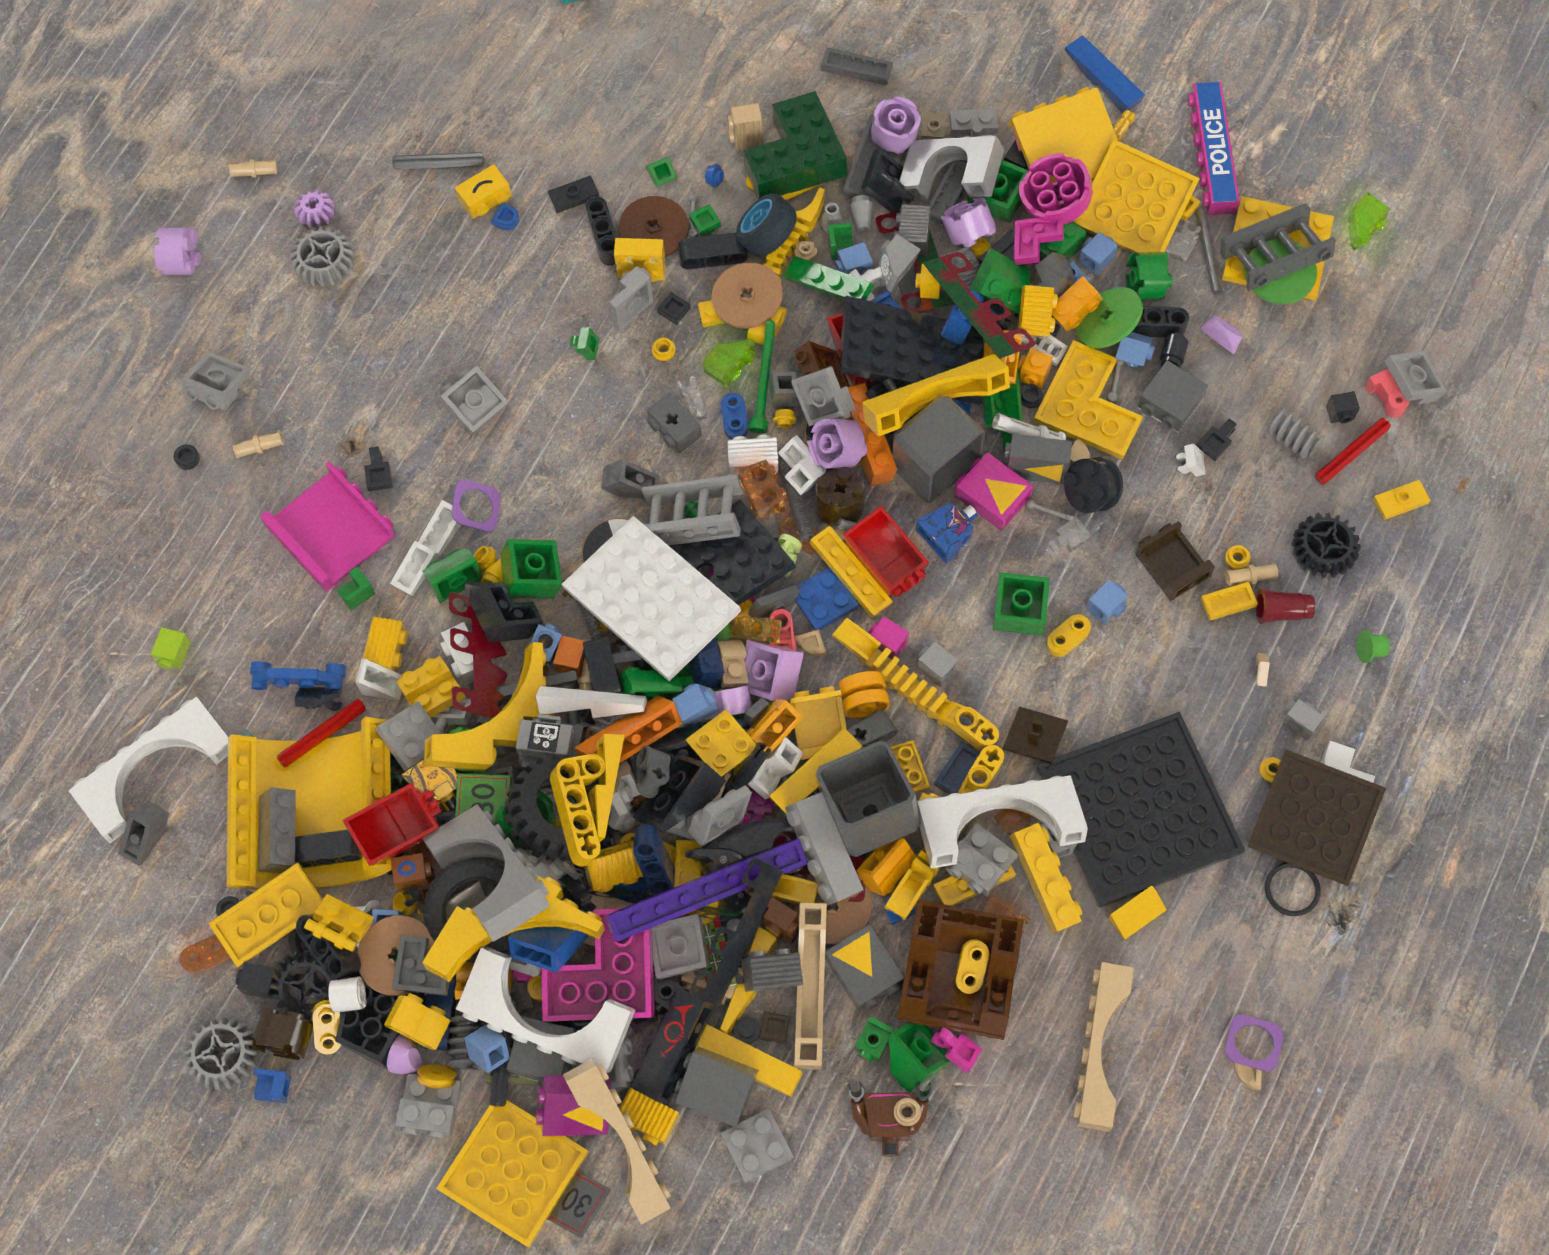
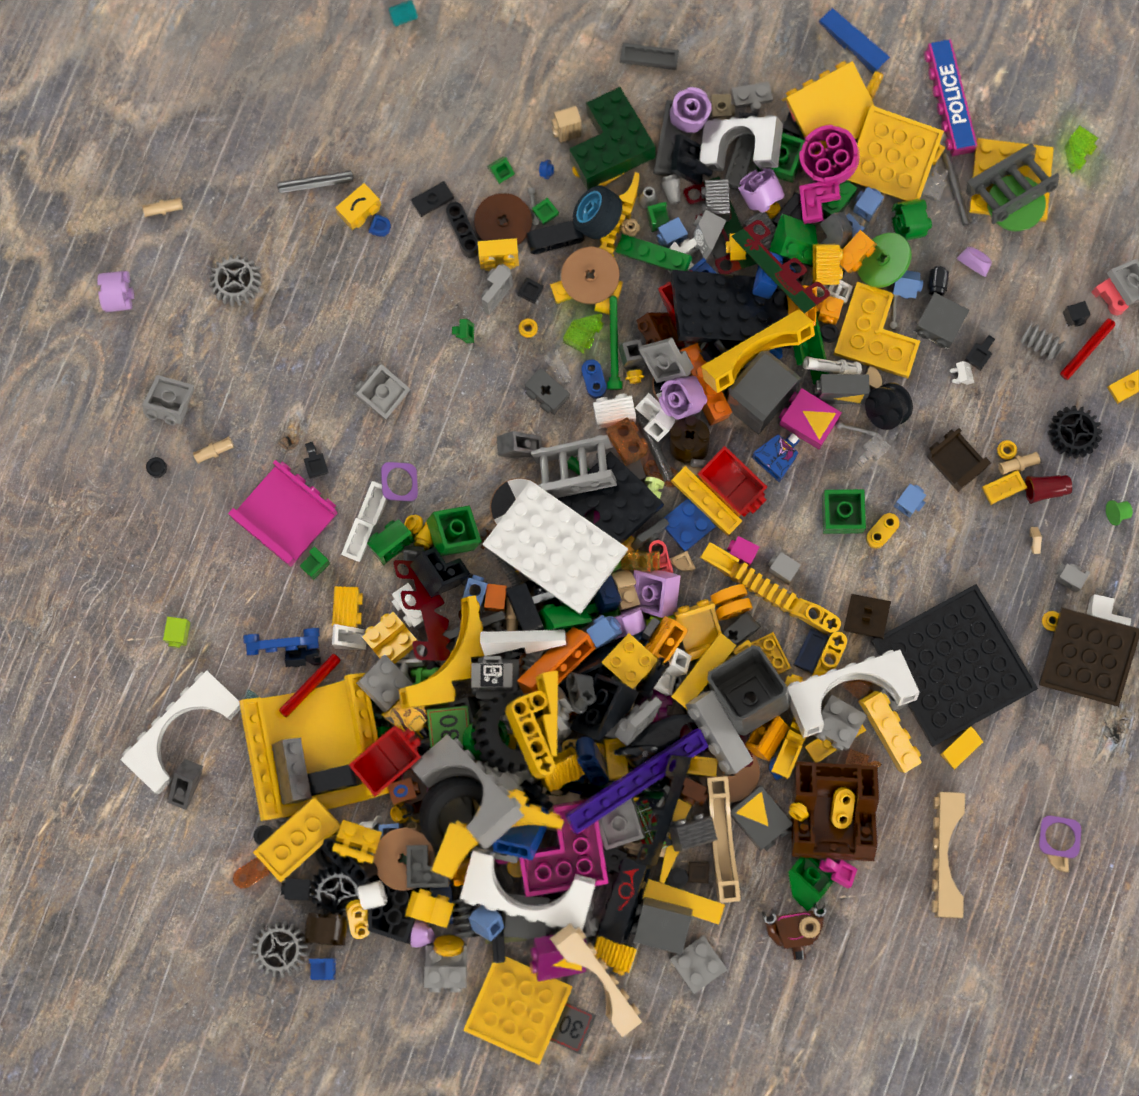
camera: 10 degrees left, 10 degrees up
(314, 209) = (219, 231): lavender gear -> none
(873, 1051) = (778, 865): green brick -> none
(912, 960) = (798, 811): none -> yellow plate
(1164, 317) = (927, 253): black beam -> none
(1284, 911) = (1057, 714): black tyre -> none

